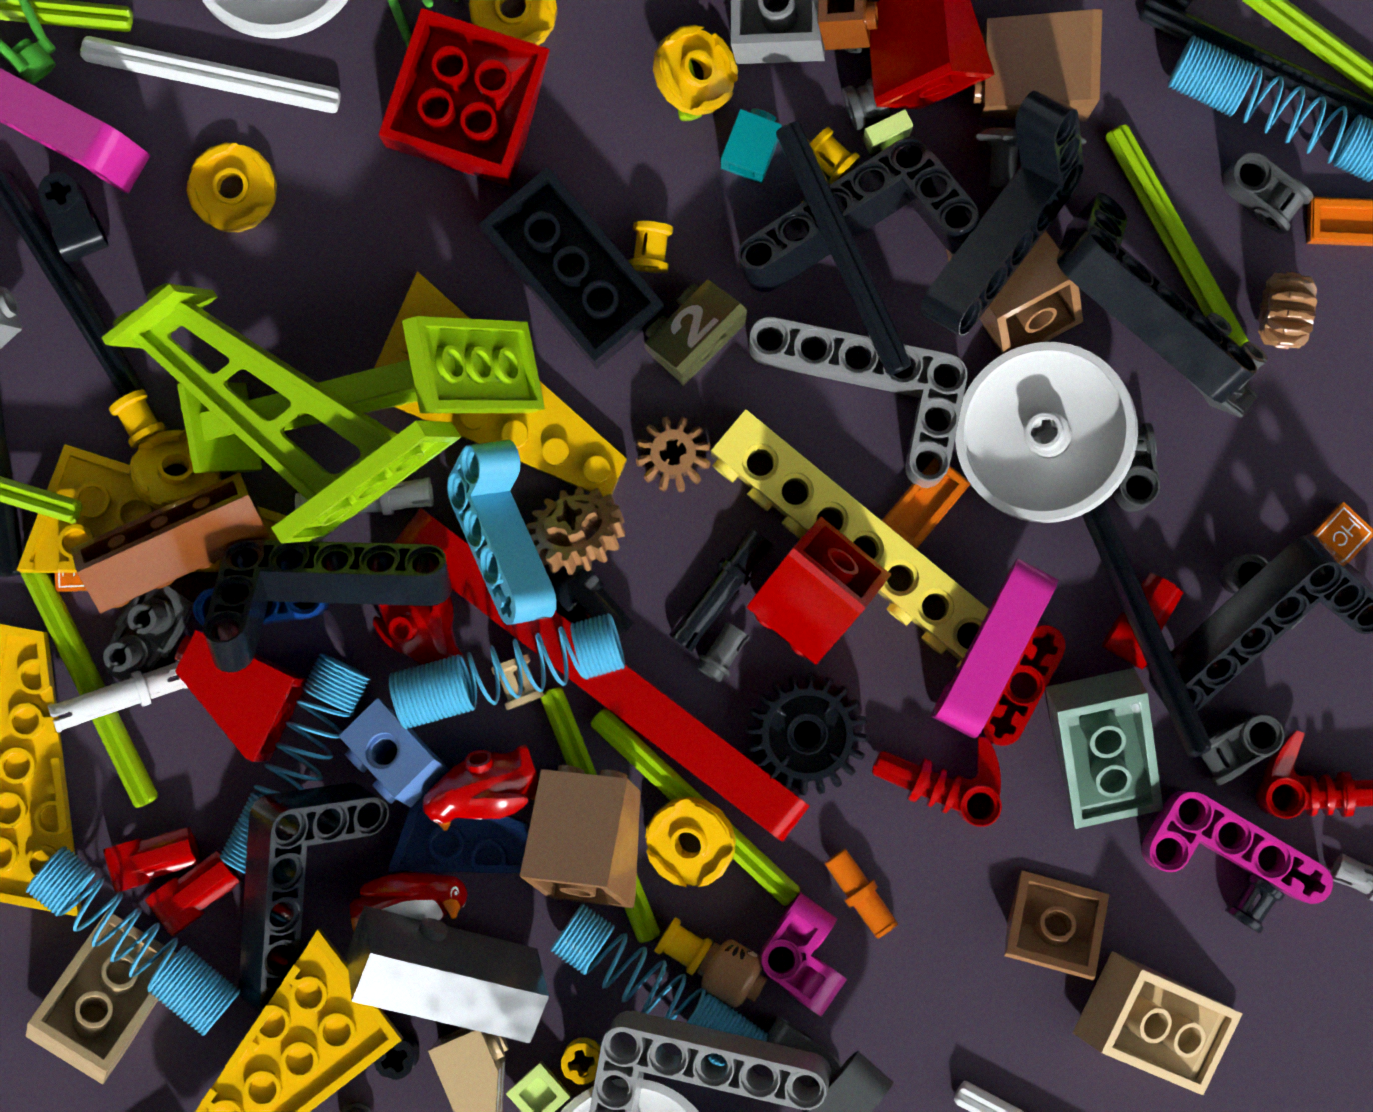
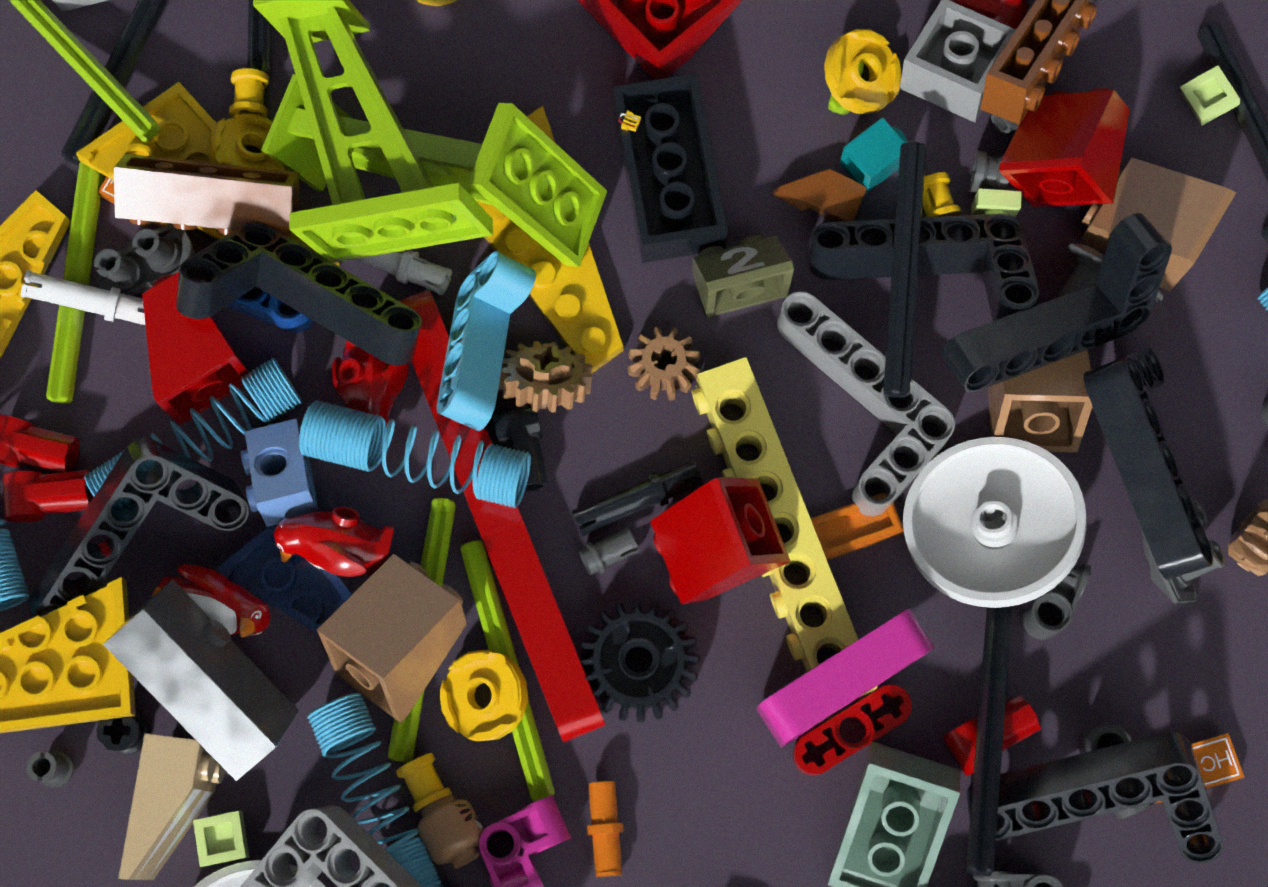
camera: 25 degrees right, 10 degrees down
(515, 249) = (630, 121): none -> yellow piece
(528, 694) = (424, 491): tan bush -> none
(574, 1072) = (261, 823): yellow bush -> none
(650, 246) = (744, 189): yellow bush -> none
(727, 208) = (825, 193): none -> dark orange slope
(938, 788) = (729, 779): red piece -> none
(1171, 228) = (1197, 412): lime axle -> none

